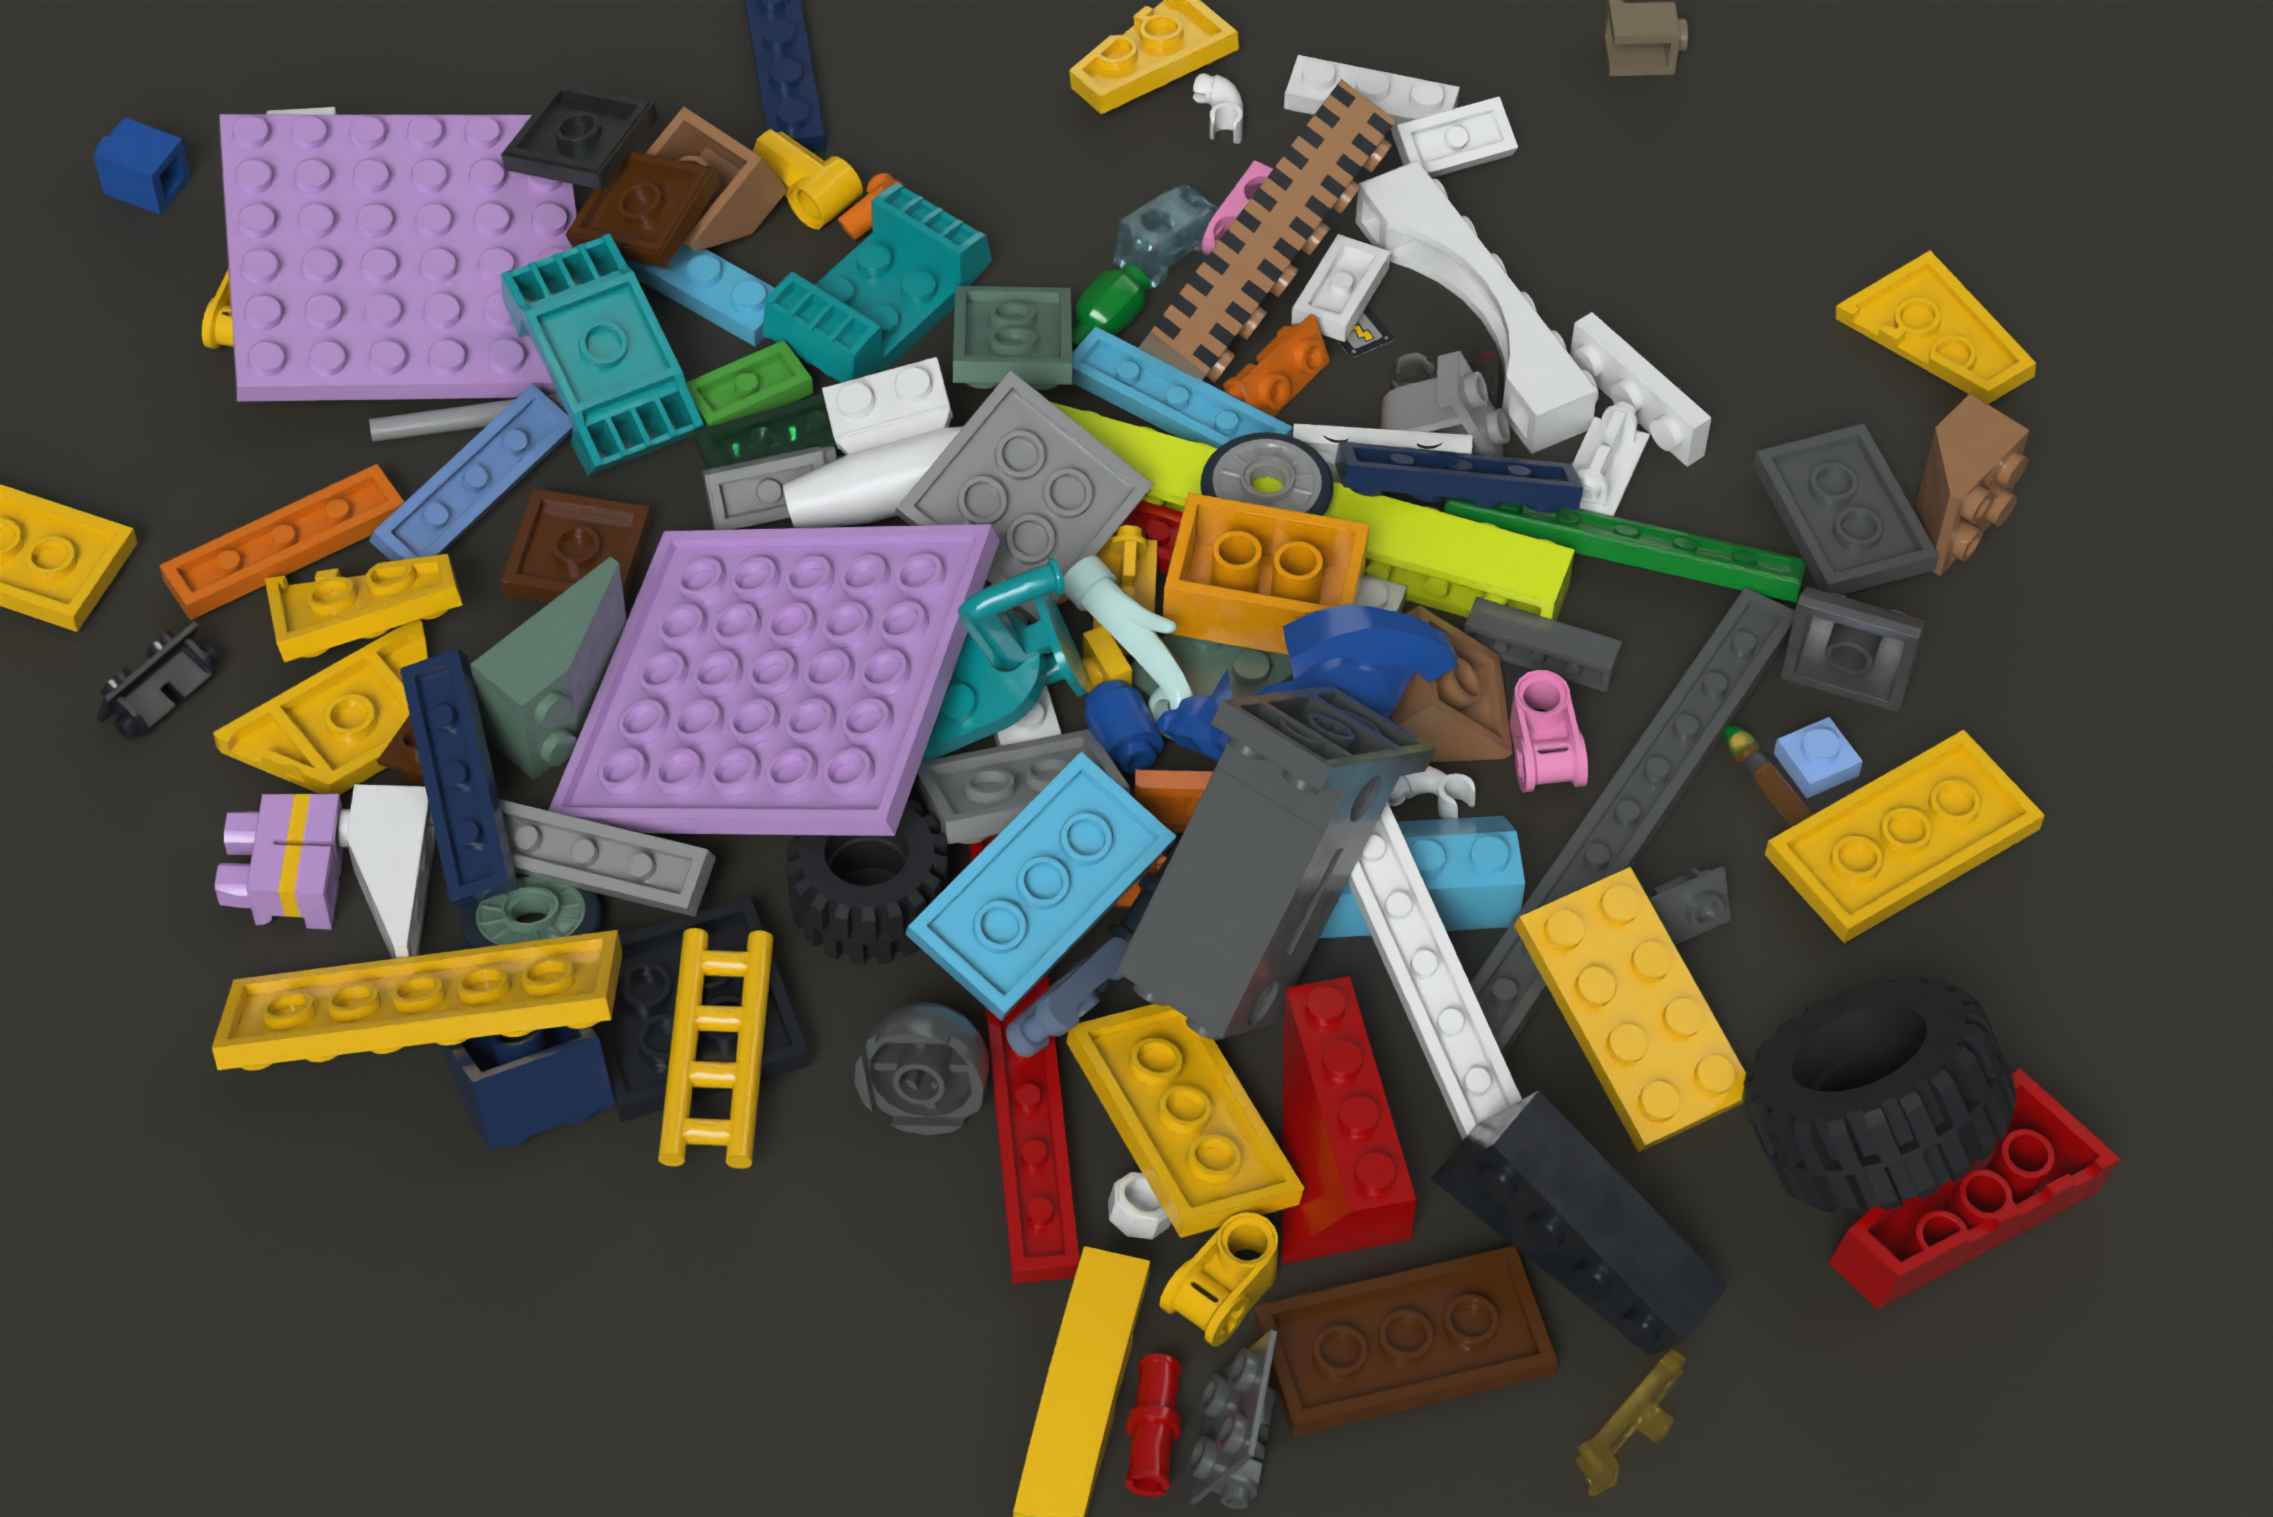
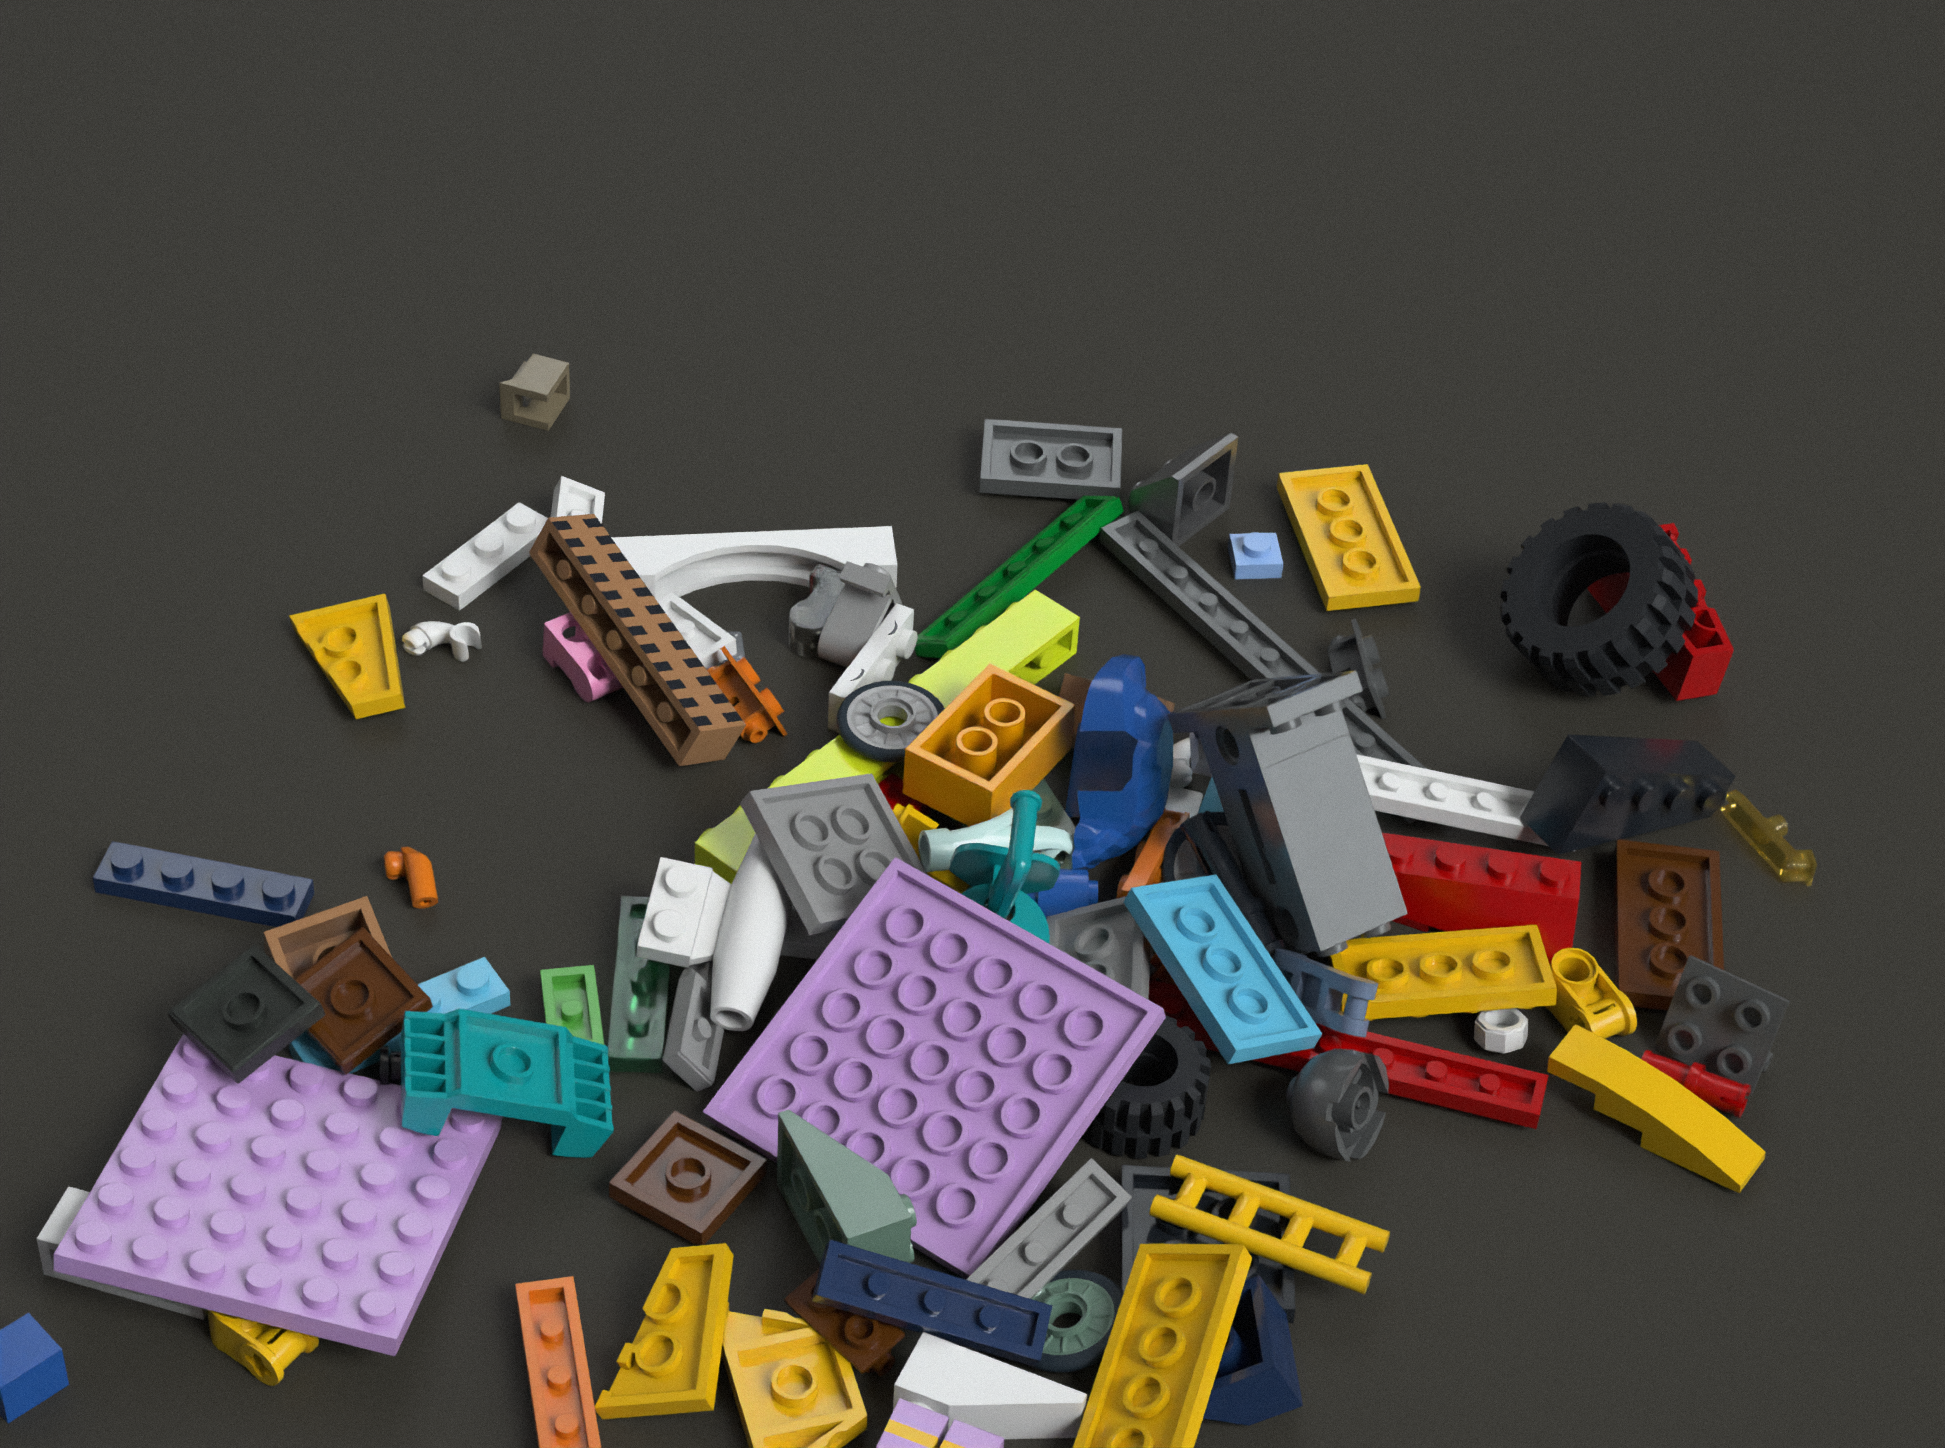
camera: 70 degrees left, 10 degrees down
(441, 420) = (483, 1207): light grey bar -> none
(474, 479) = (572, 1225): medium blue plate -> none
(815, 187) = (384, 891): yellow piece -> none
(881, 292) = (515, 895): teal plate -> none
(1012, 331) = (634, 822): sand green plate -> none
(1110, 302) = (619, 769): green plant -> none
(1163, 232) = (569, 711): clear light blue leg -> none
(1164, 393) = (739, 763): medium azure plate -> none
(1474, 477) = (934, 623): dark blue plate -> none
(1545, 644) = (1090, 648): dark grey piece -> none
(1547, 742) = (1176, 670): bright pink piece -> none
(1609, 458) = (937, 561): white hinge -> none
(1628, 377) = (905, 509): white plate -> none
(1634, 1008) = (1448, 708): yellow plate -> none
(1747, 752) = (1269, 584): clear orange piece -> none
(1940, 327) = (913, 356): yellow wing -> none
(1969, 478) = (1077, 379): medium nougat slope -> none

